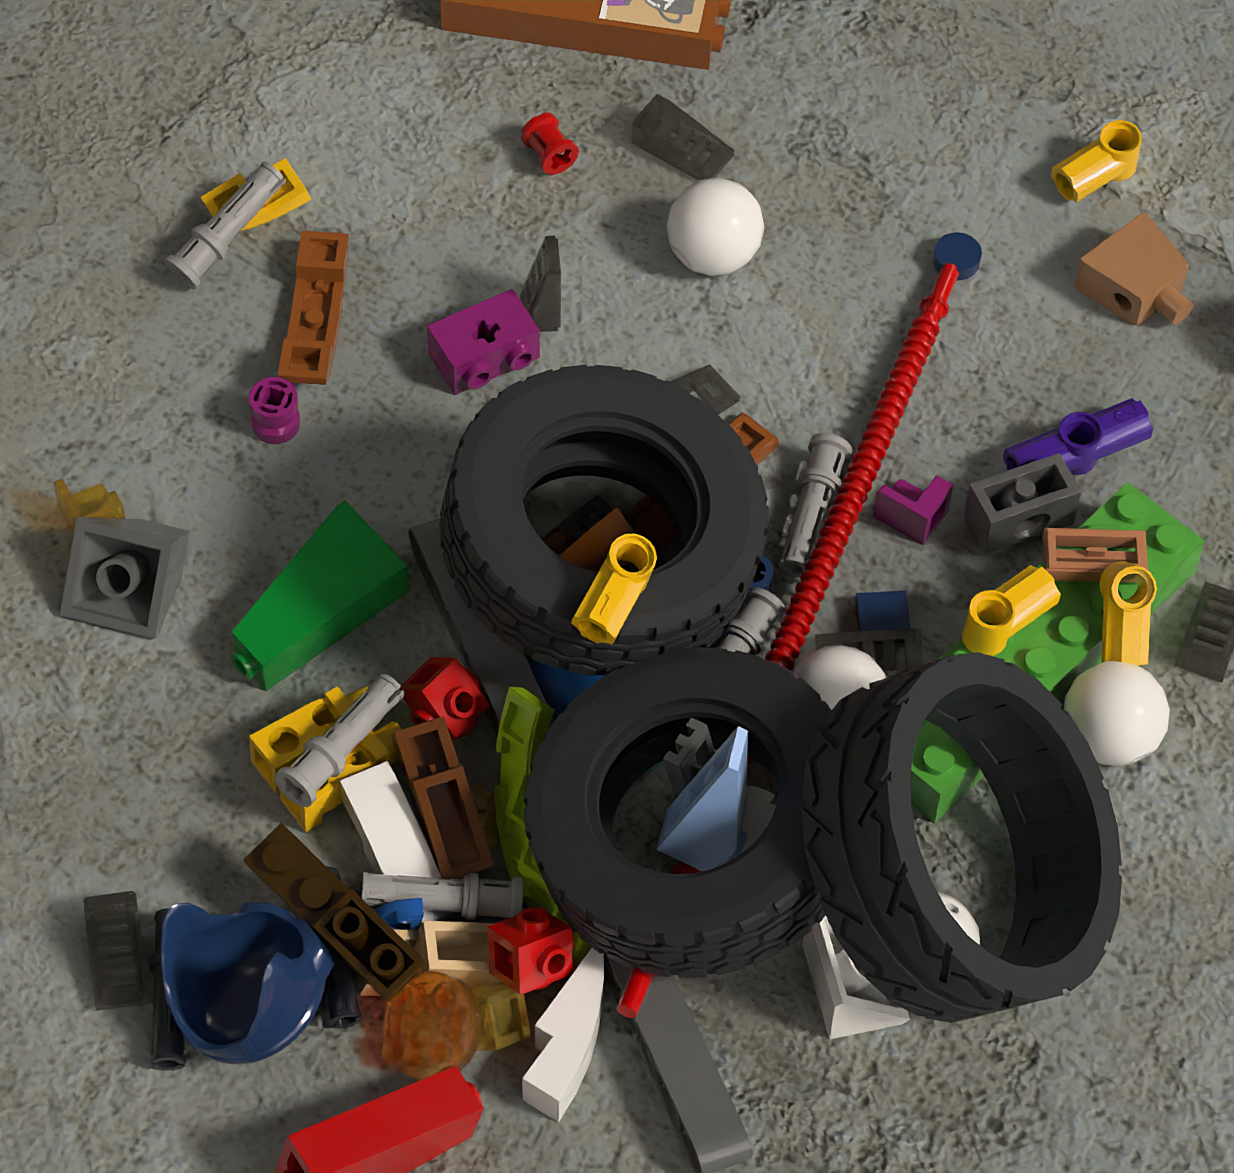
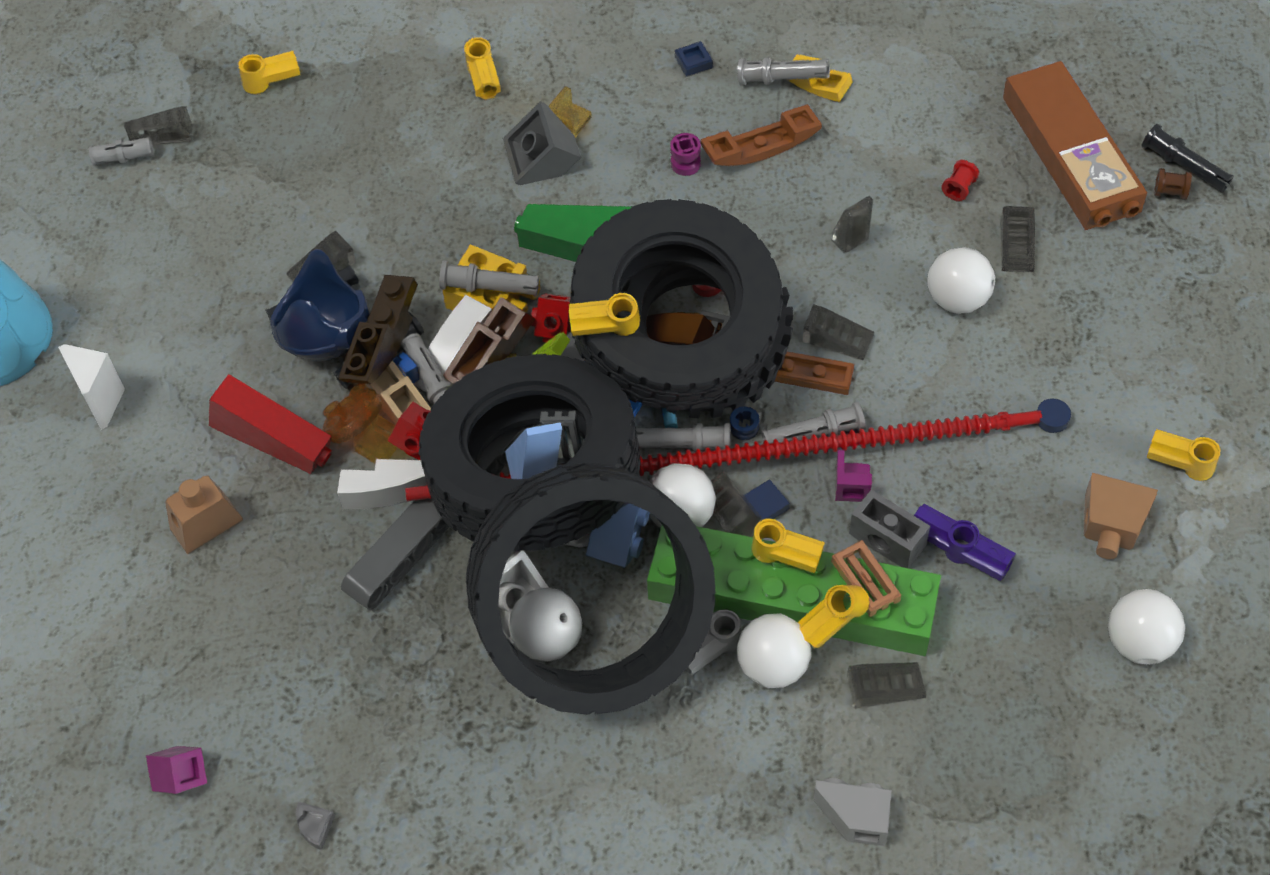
camera: 65 degrees right, 0 degrees up
(104, 317) = (693, 59): none -> dark blue tile
(483, 342) = (801, 219): magenta brick -> none

